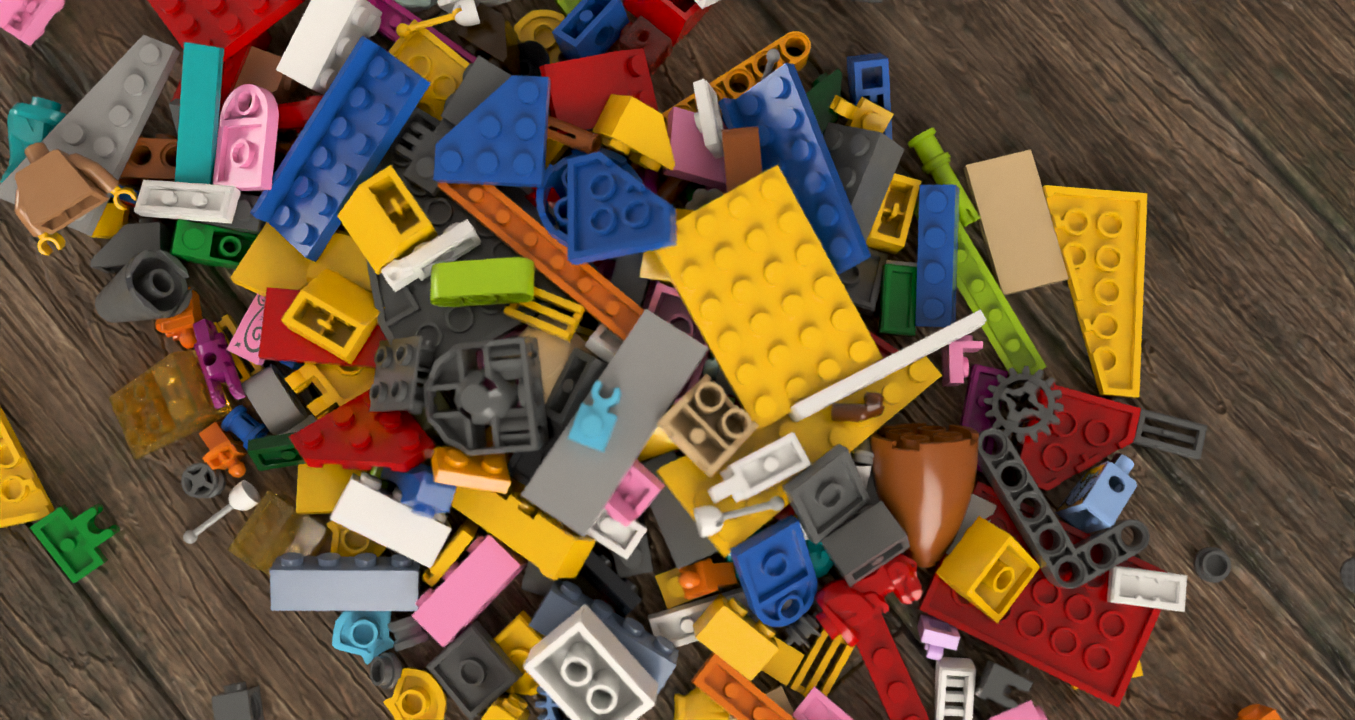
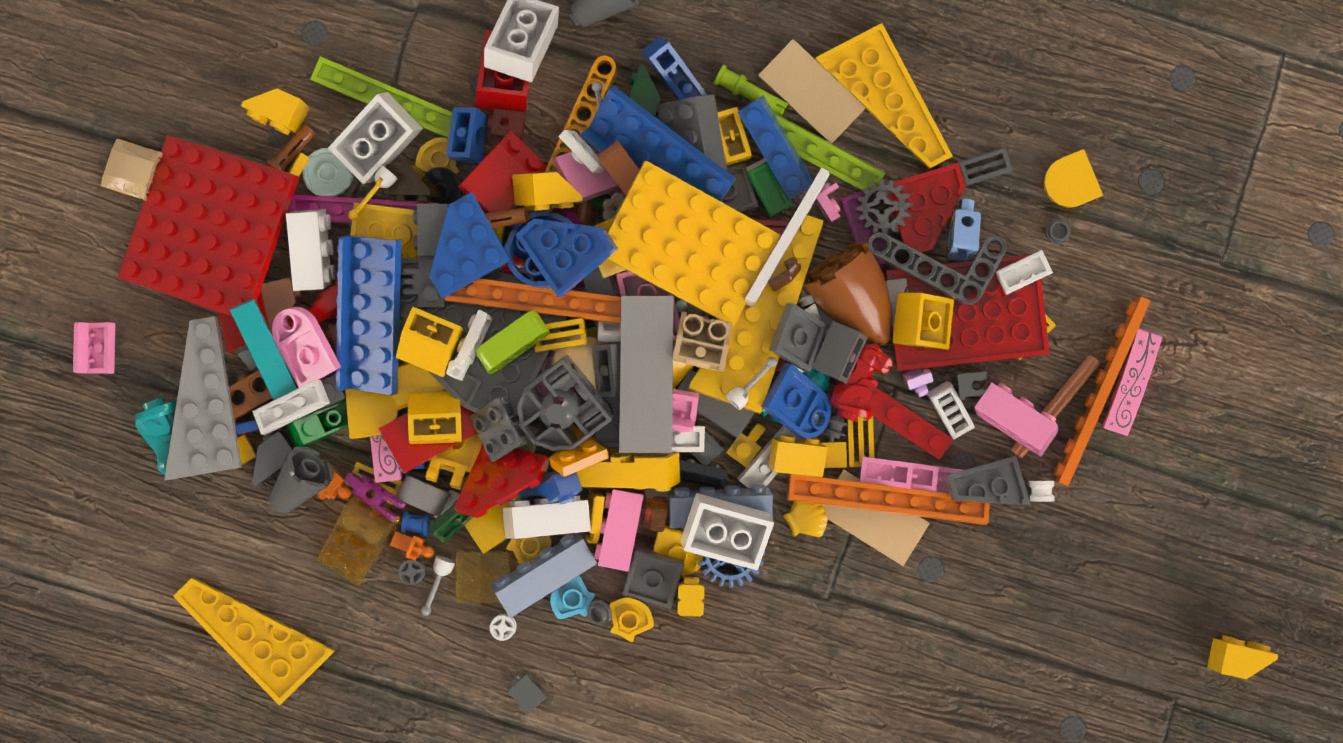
camera: 30 degrees left, 5 degrees up
(59, 191) = (212, 450): medium nougat torso -> none
(74, 540) = (358, 656): green plate -> none
(255, 615) = (500, 629): none -> white wheel
(407, 633) = (598, 580): dark grey wheel -> none
(524, 596) = (656, 513): none -> clear orange brick
(593, 423) = (636, 383): medium azure plate -> none
(706, 578) = (757, 433): orange piece -> none
(761, 469) = (750, 348): white hinge -> none
(863, 115) = (677, 87): yellow plate -> none
(1263, 515) = (1072, 181): none -> yellow tile

